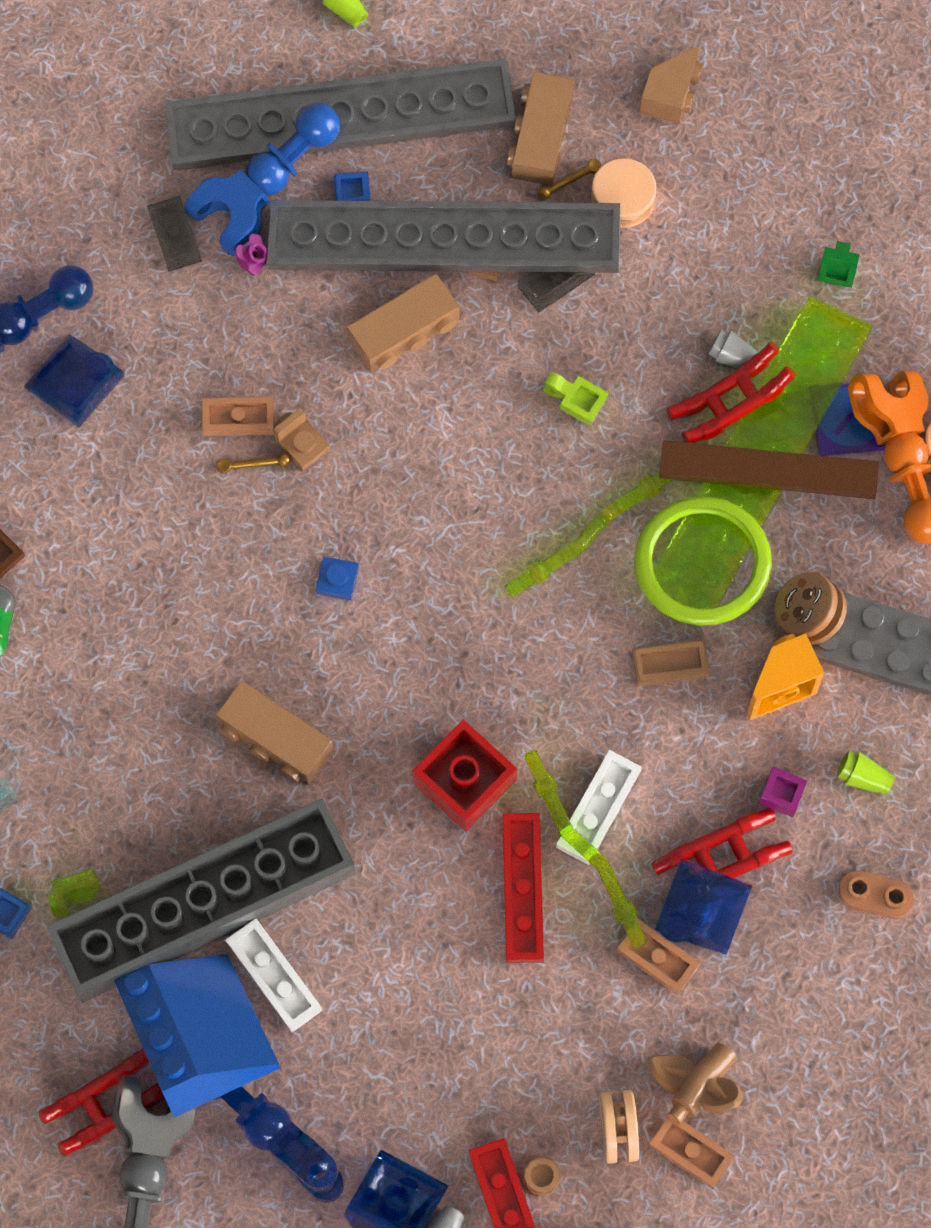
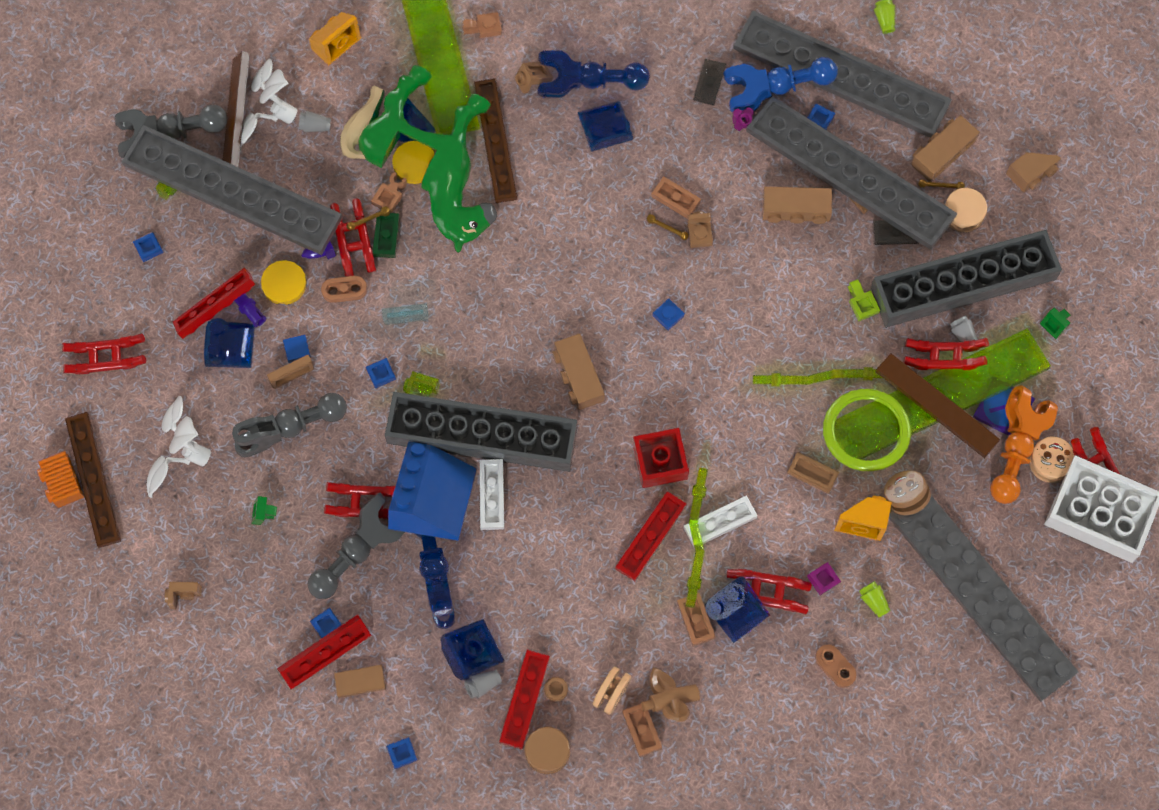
camera: 35 degrees right, 0 degrees up
(687, 282) = (966, 278): none -> dark grey brick

